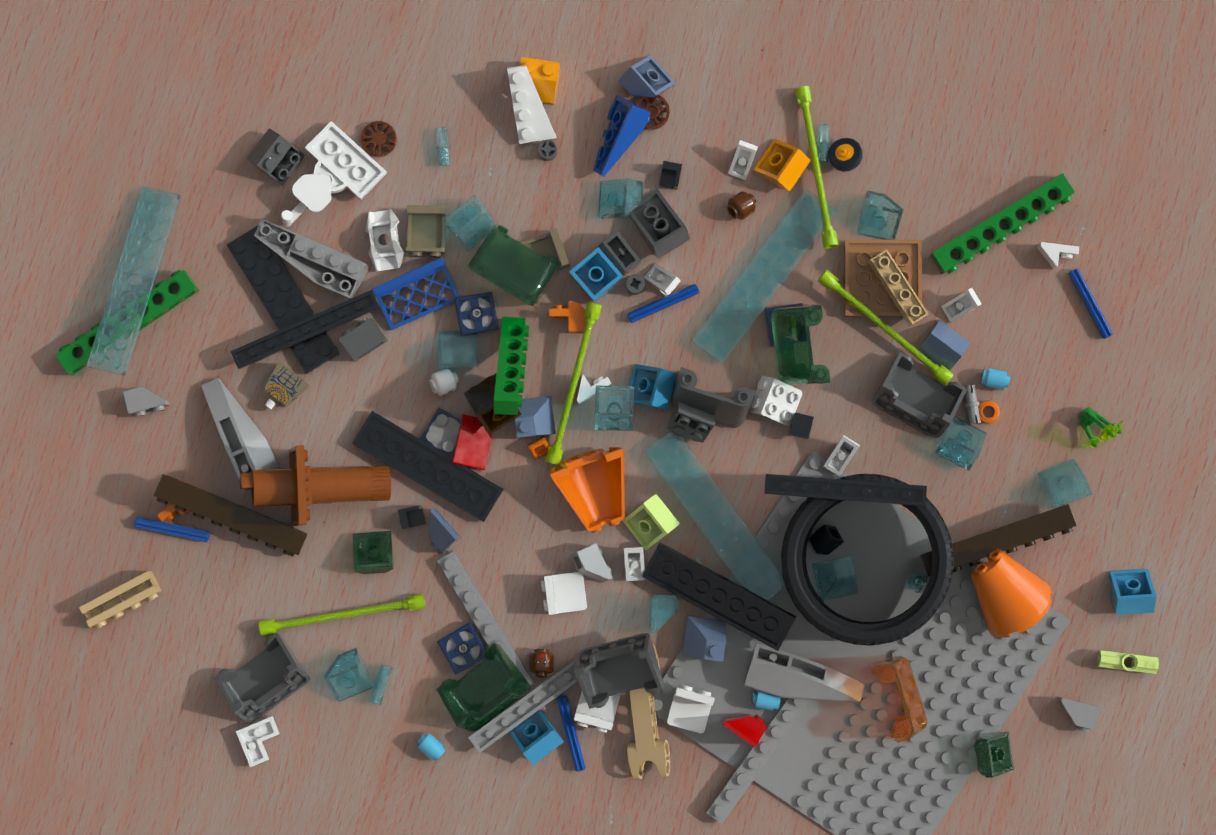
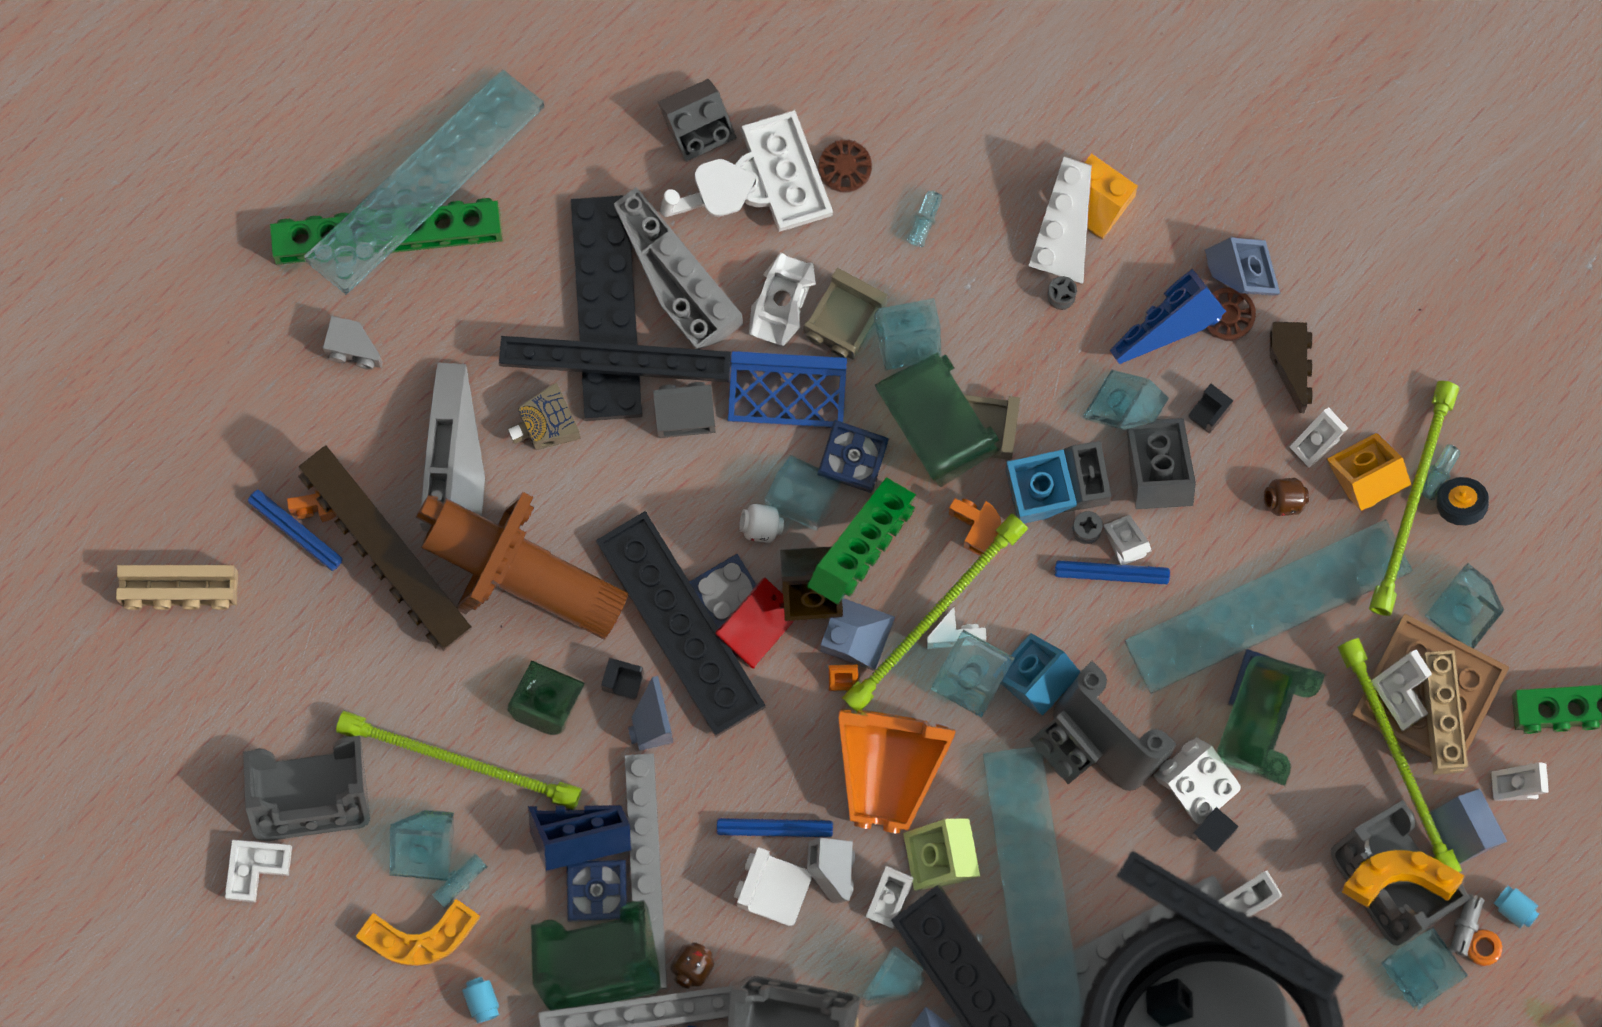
camera: 25 degrees right, 10 degrees down
(378, 736) = (421, 948): none -> light orange plate
(436, 622) = (578, 835): none -> dark blue wedge
(546, 557) = (775, 827): none -> blue axle
(700, 118) = (1289, 355): none -> dark brown slope
(864, 287) = (1397, 686): none -> white plate
(918, 391) = (1401, 866): none -> light orange plate

